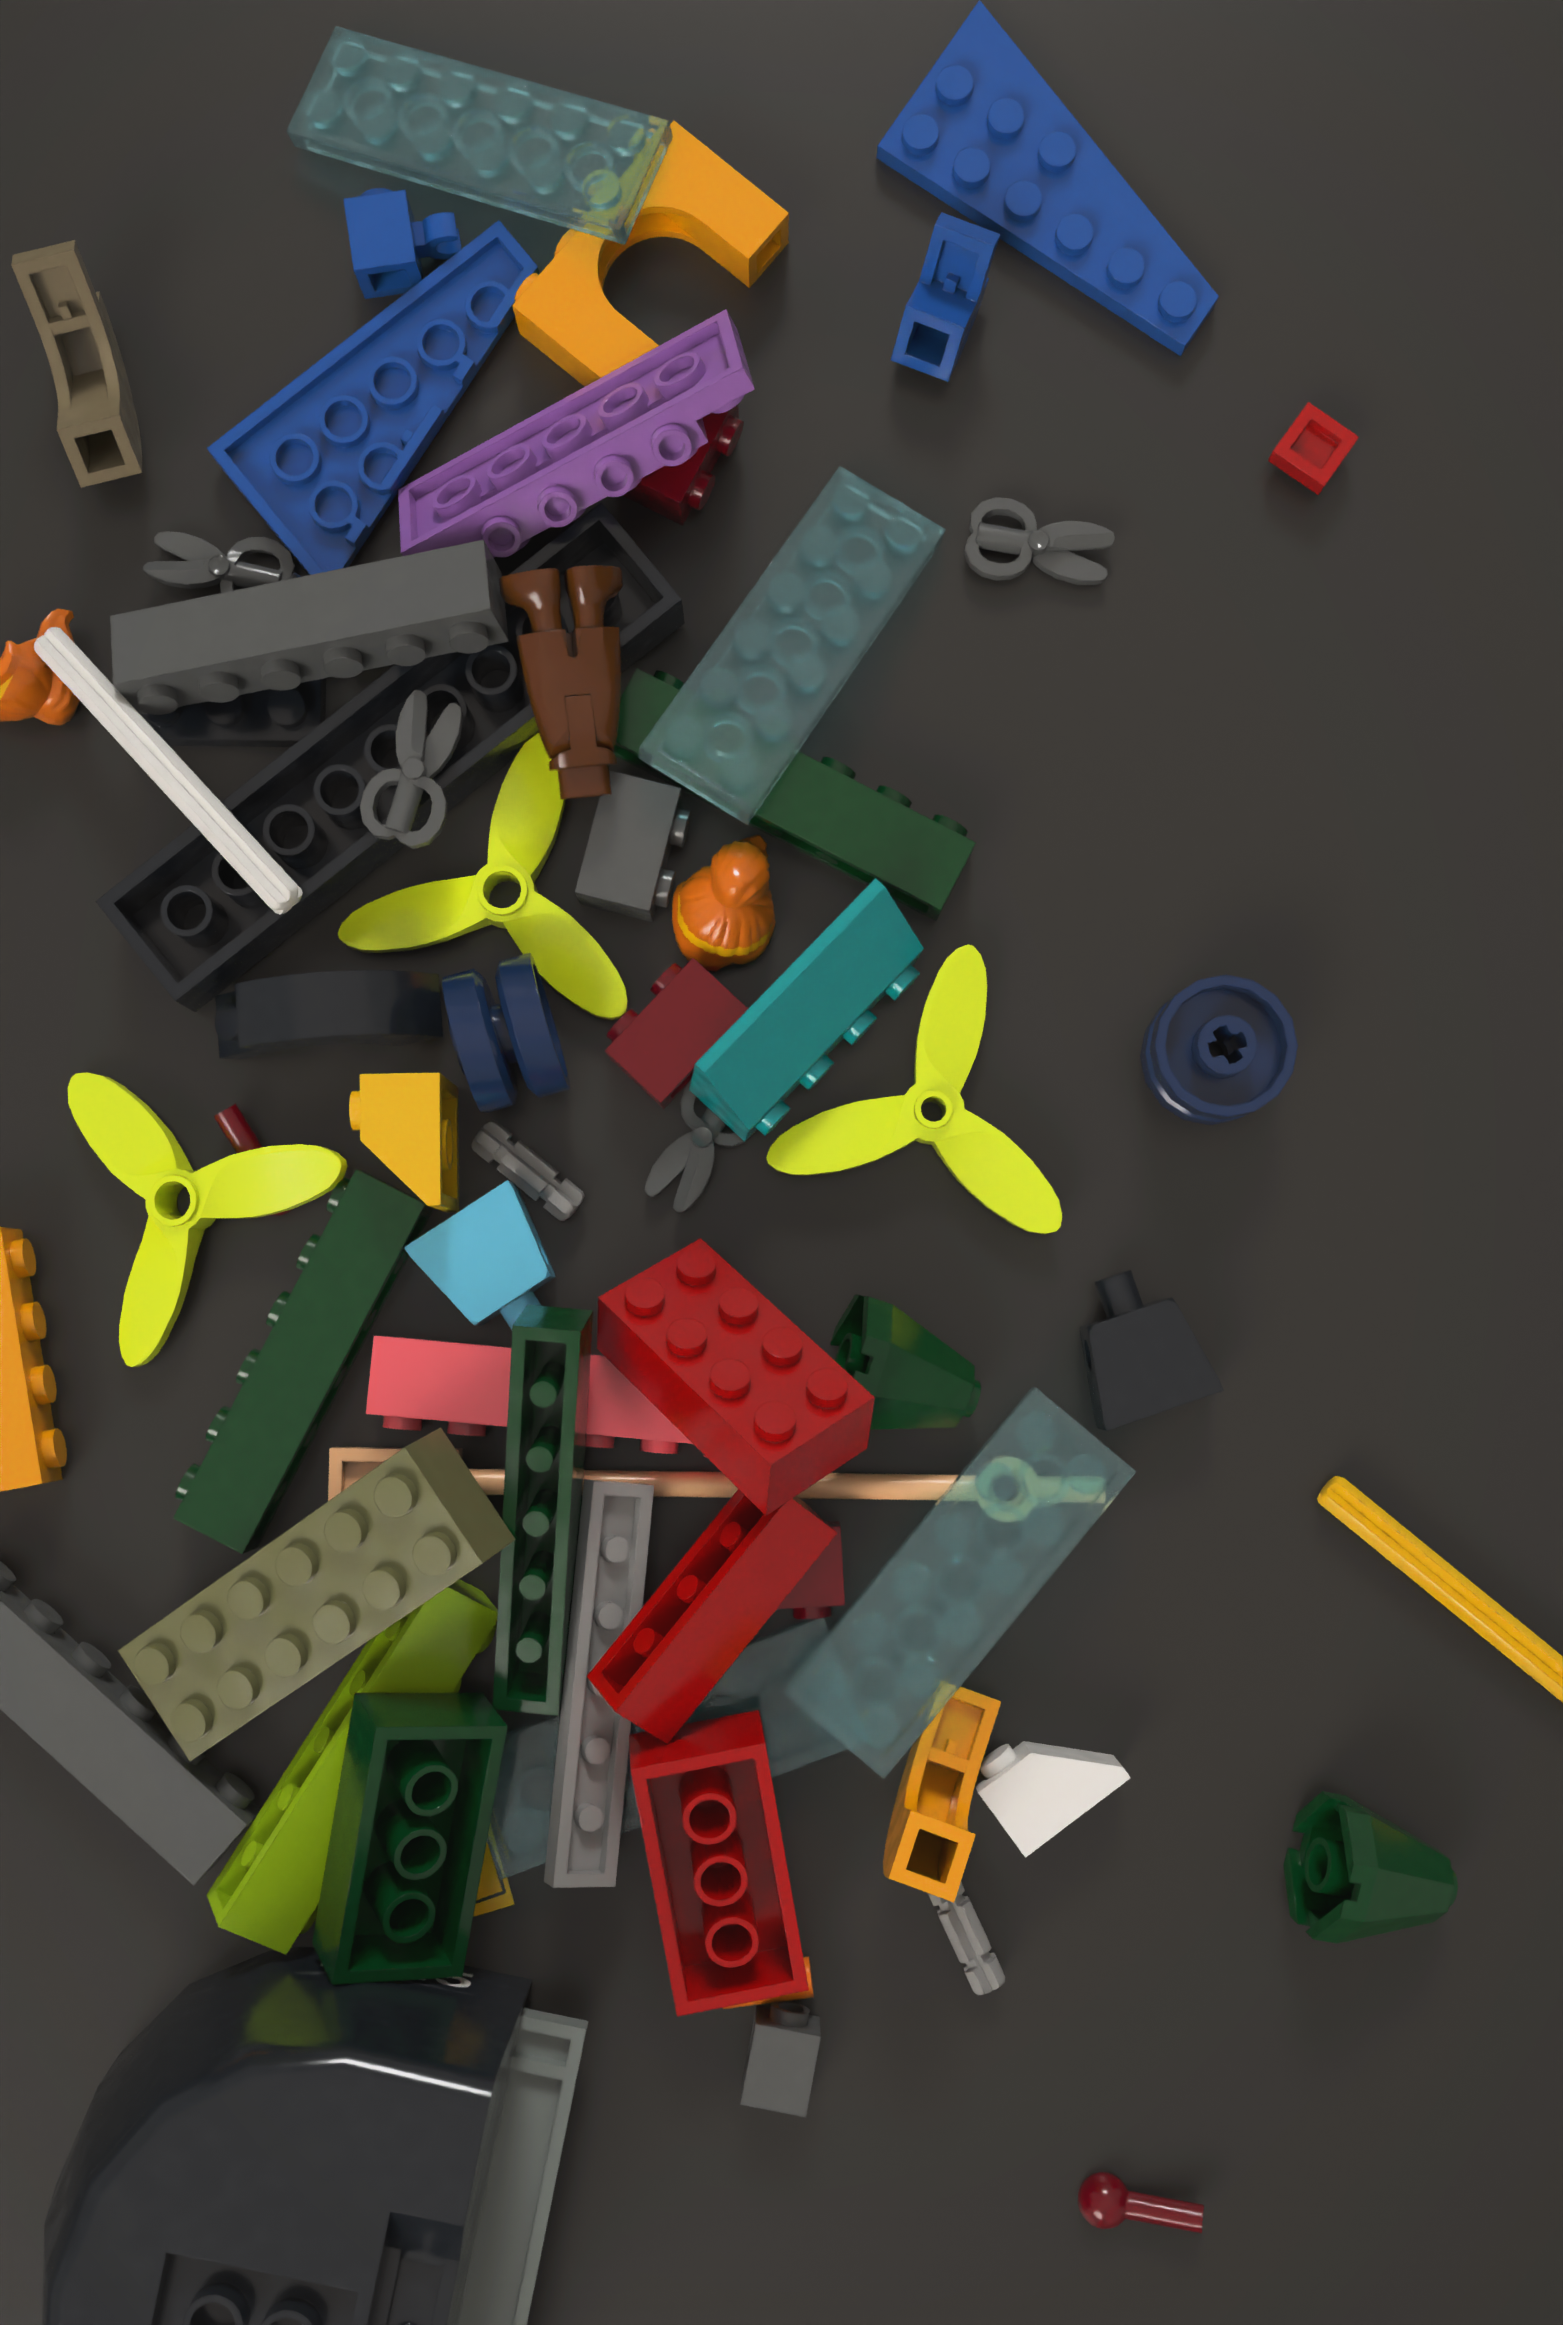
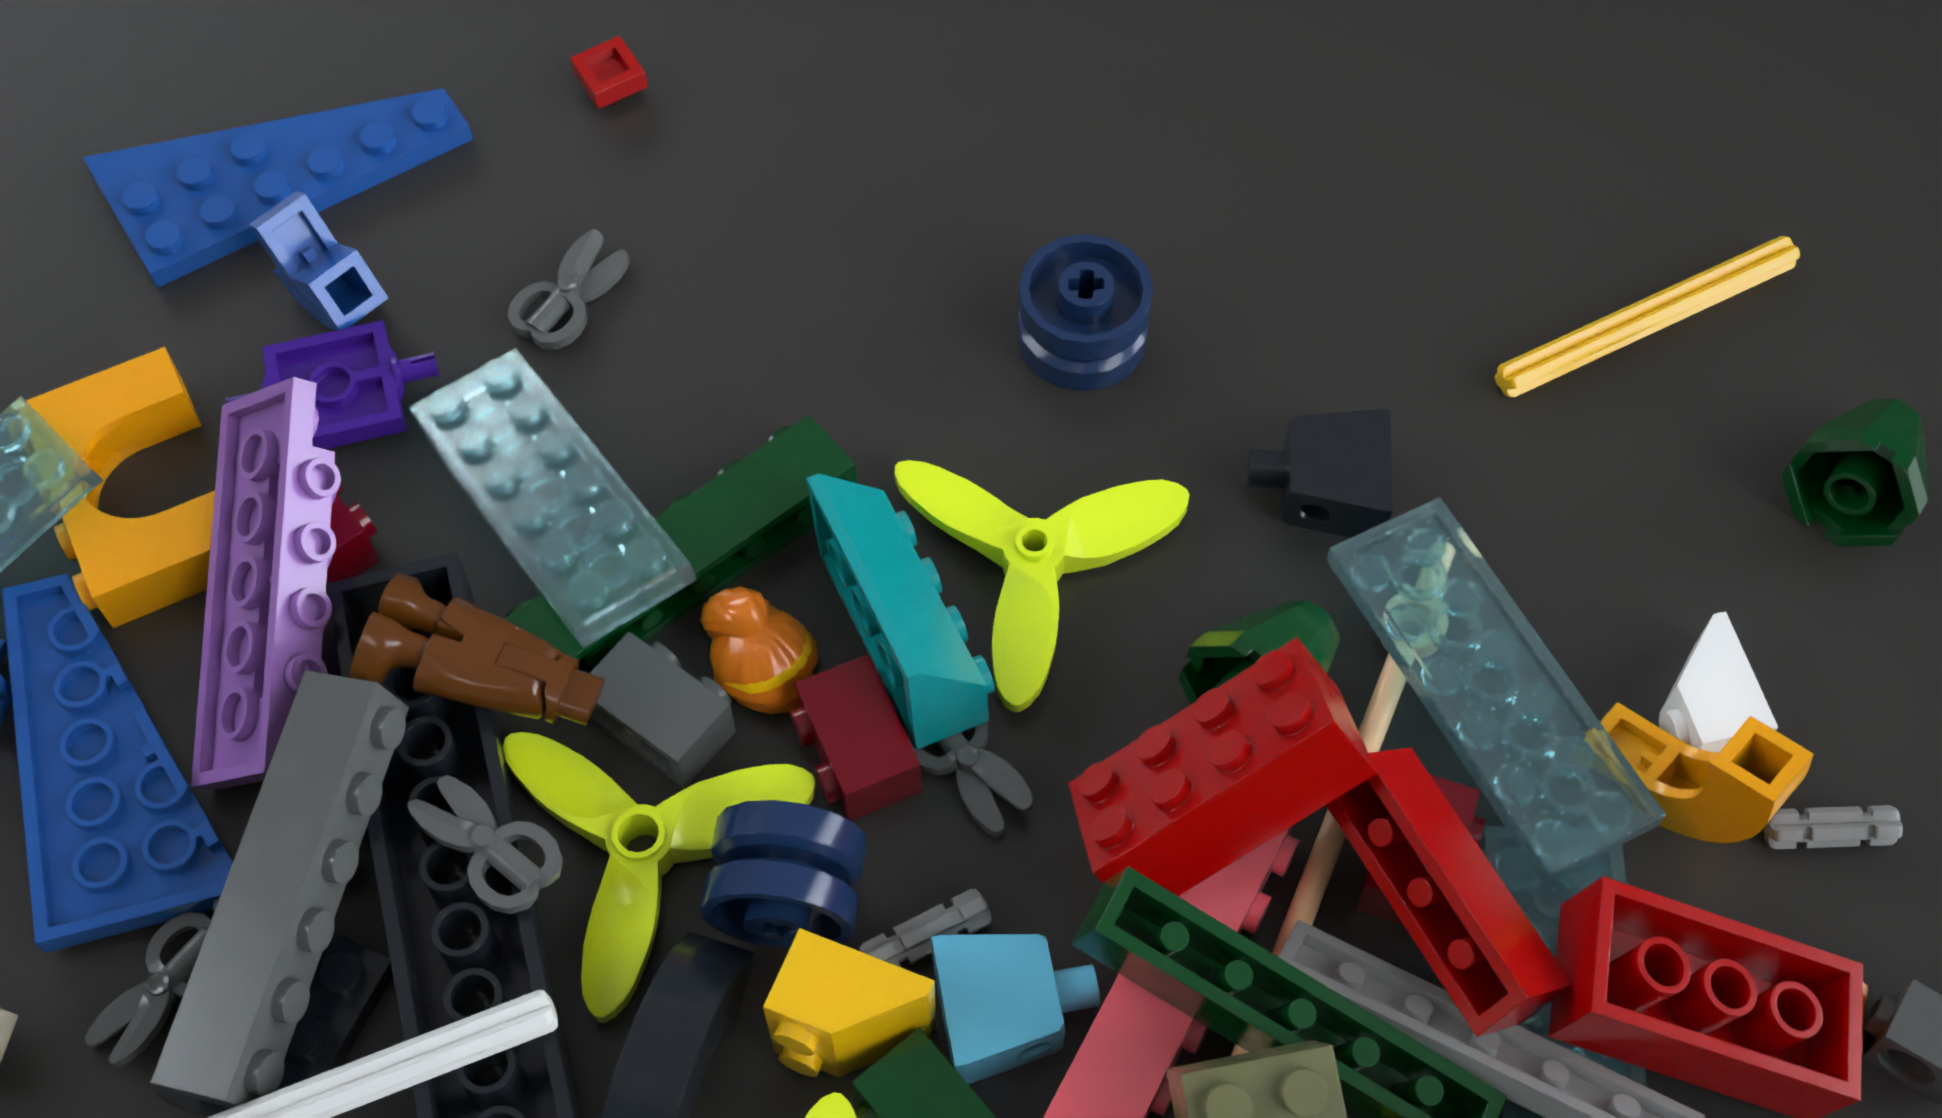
camera: 65 degrees left, 25 degrees down
(830, 386) = (355, 379): none -> dark purple plate

